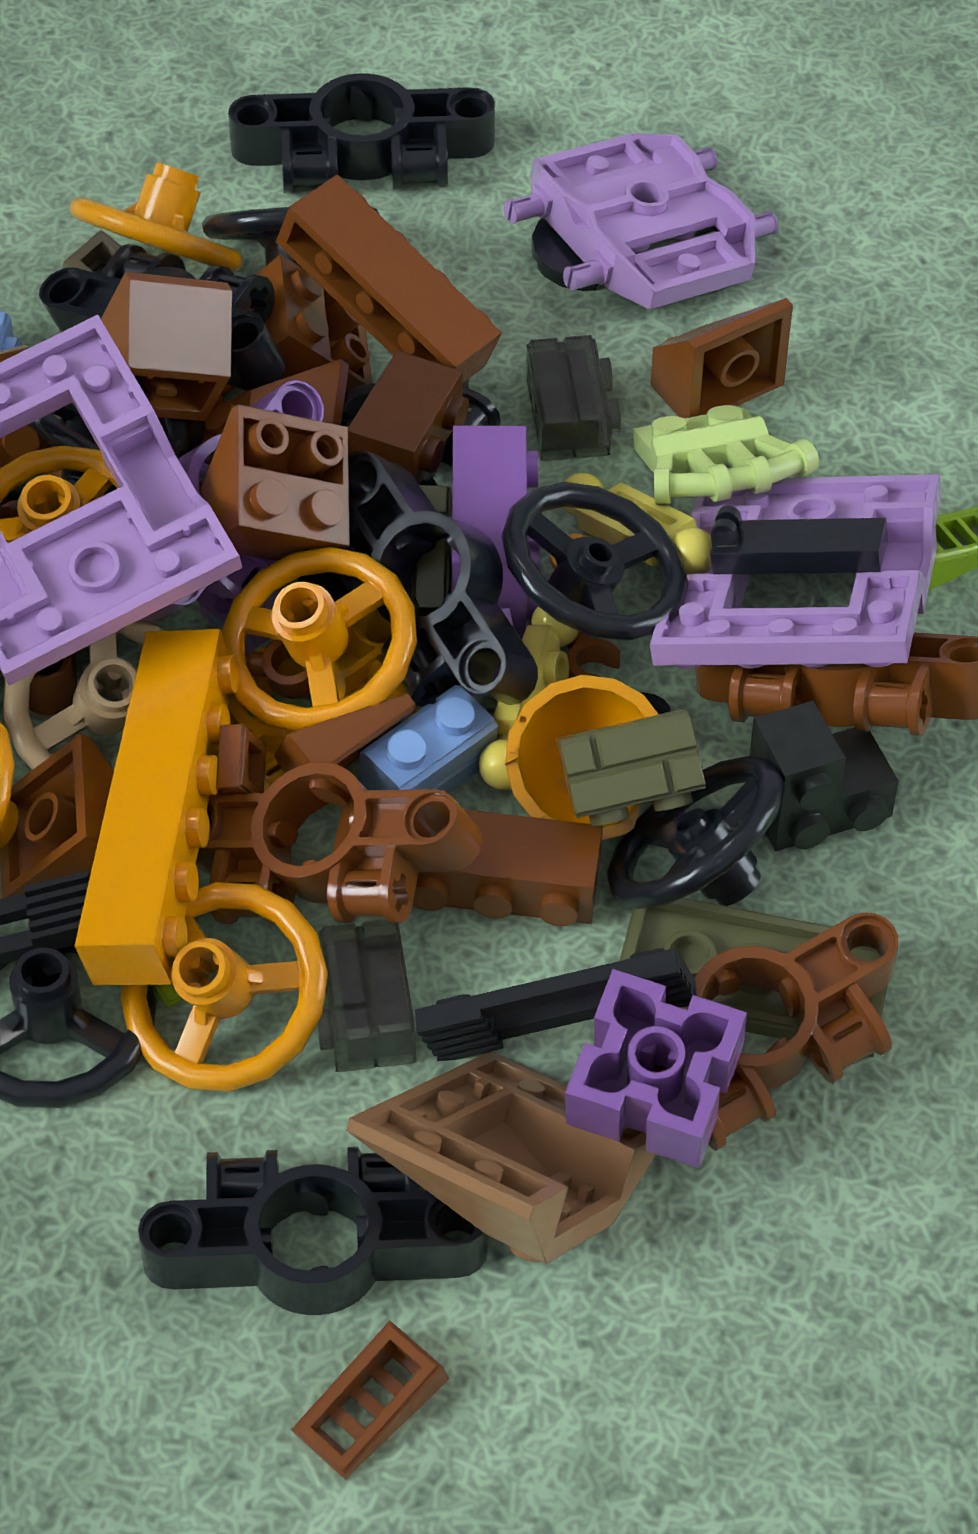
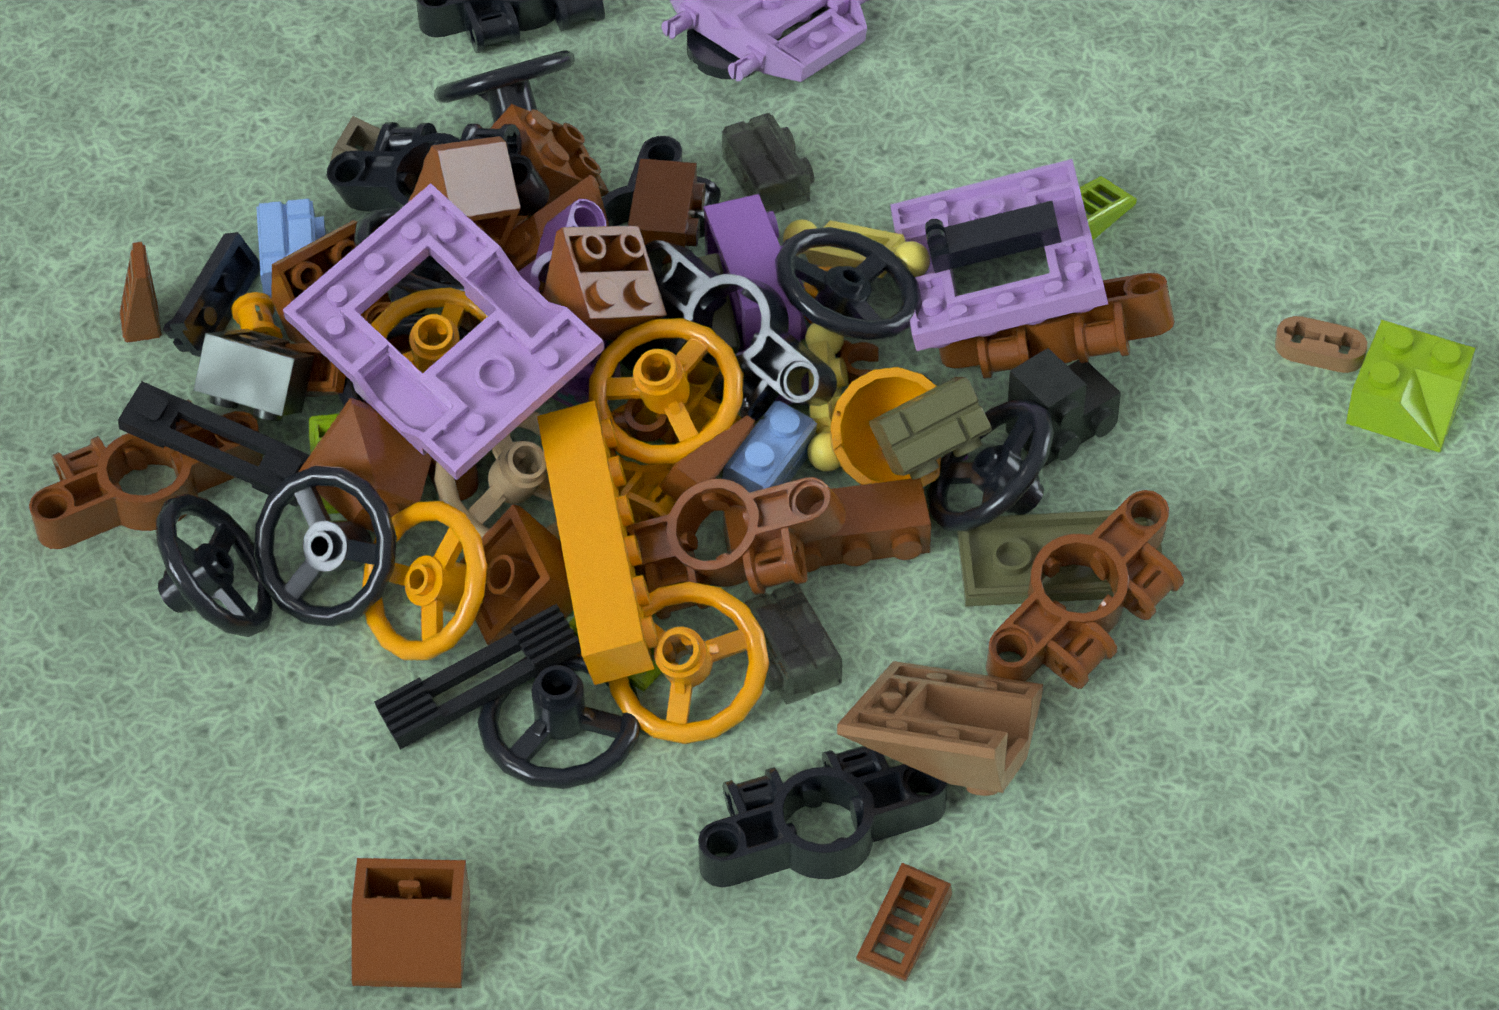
camera: 15 degrees left, 0 degrees up
(160, 218) = (404, 96): light orange piece -> none
(240, 761) = (641, 494): dark orange tile -> none
(385, 280) = (607, 106): dark orange brick -> none
(480, 1023) = (881, 643): black container -> none
(632, 1035) = (1052, 614): medium lavender brick -> none
(693, 455) = (890, 171): yellowish green plate -> none
(724, 360) = (873, 110): dark orange slope -> none

